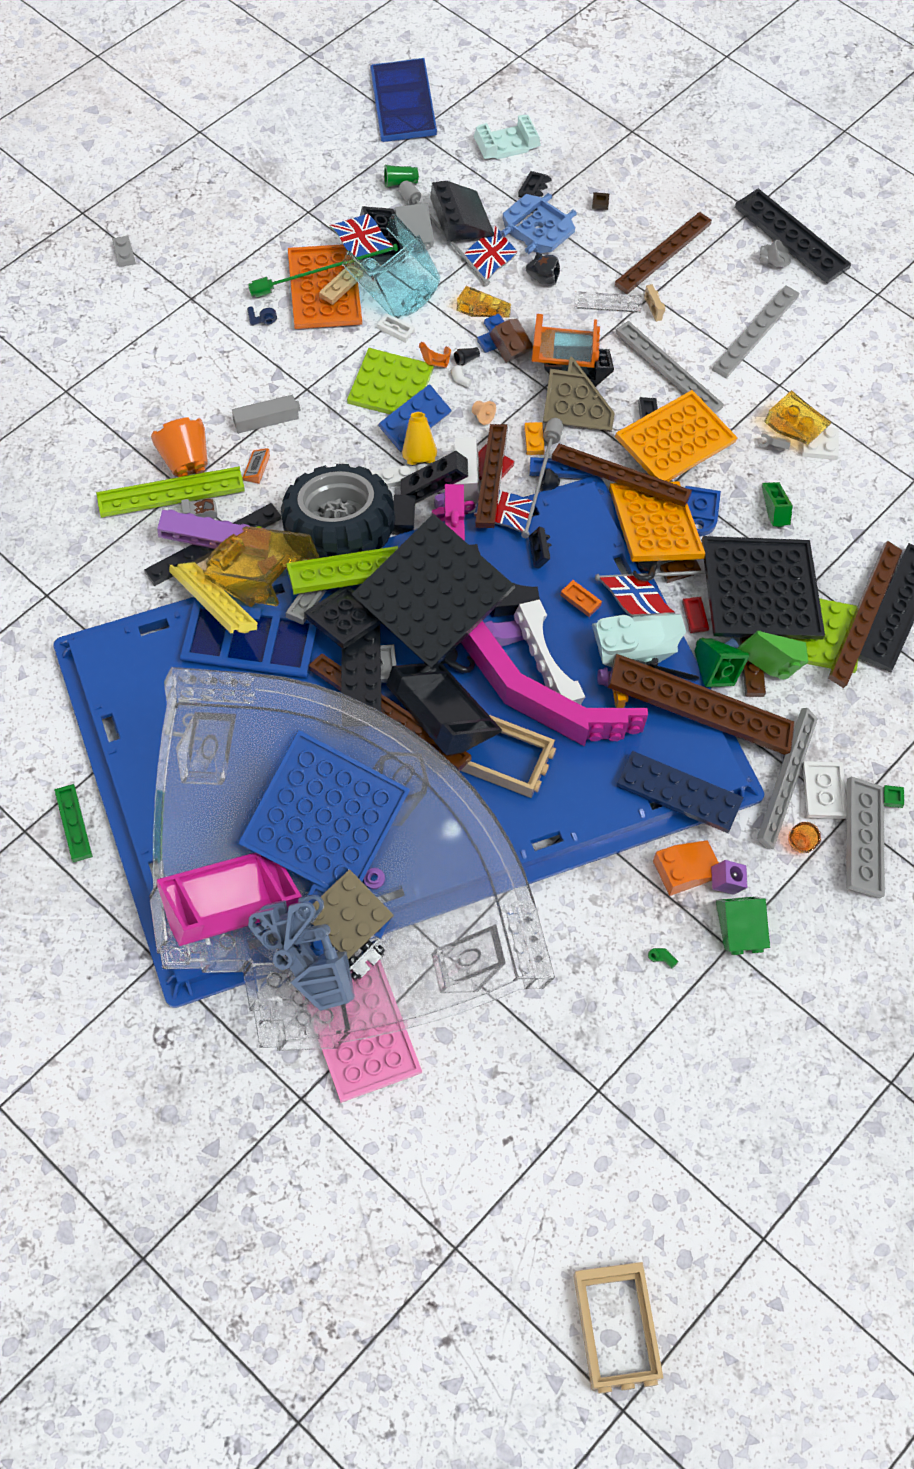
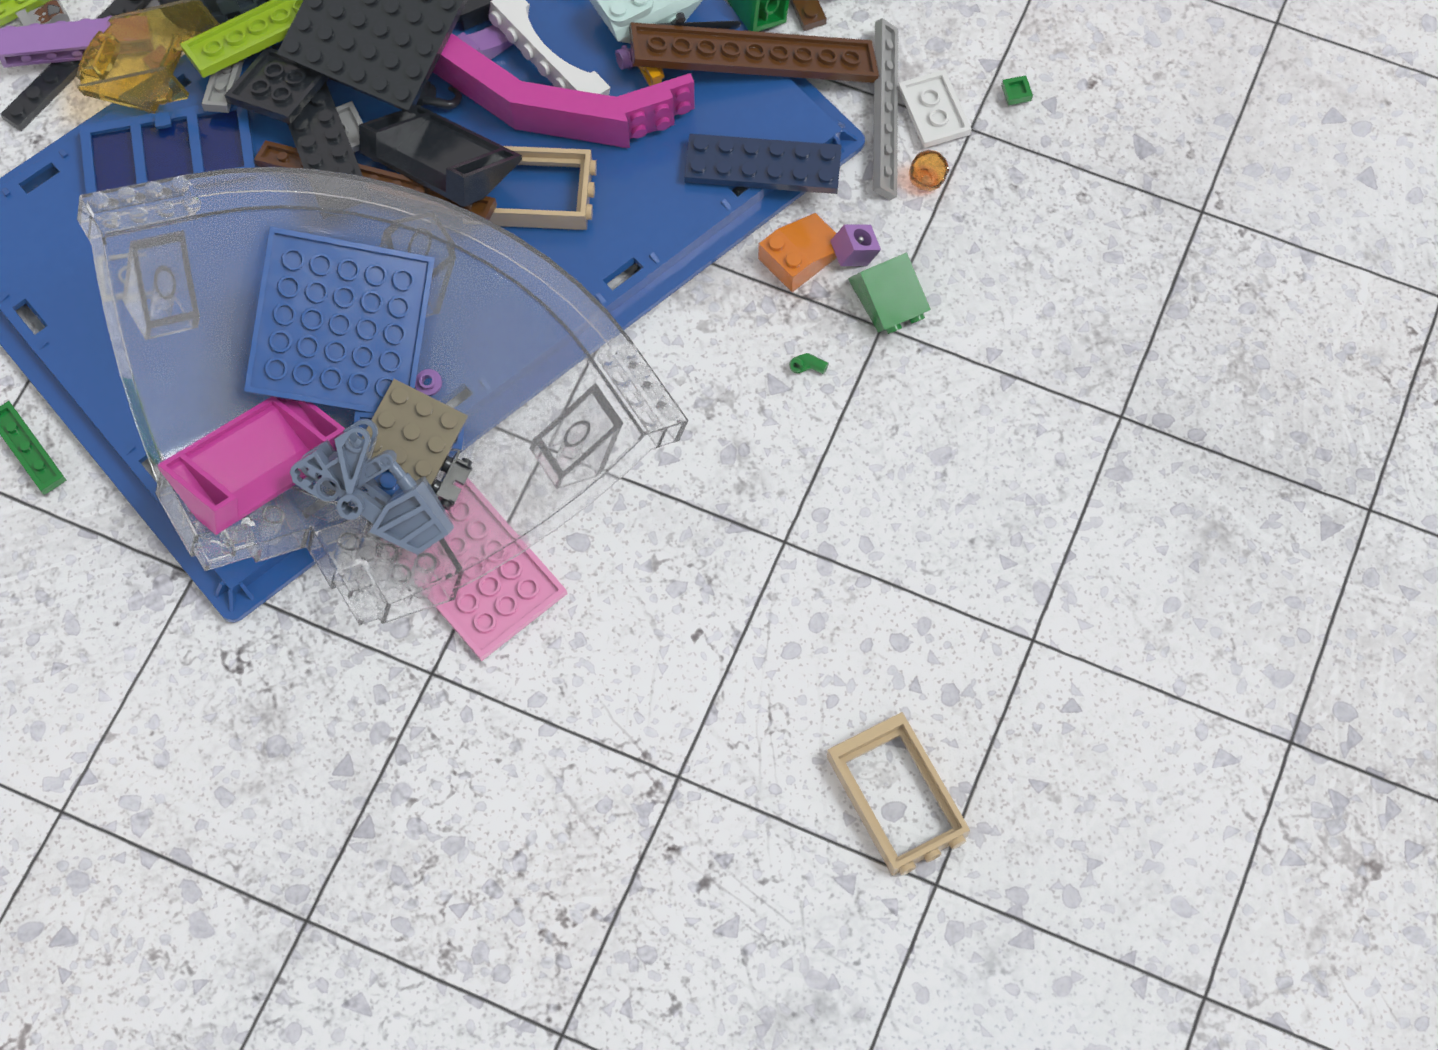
camera: 15 degrees left, 5 degrees up
(213, 598) = (102, 115): light yellow plate -> none
(865, 838) = (999, 147): light grey plate -> none

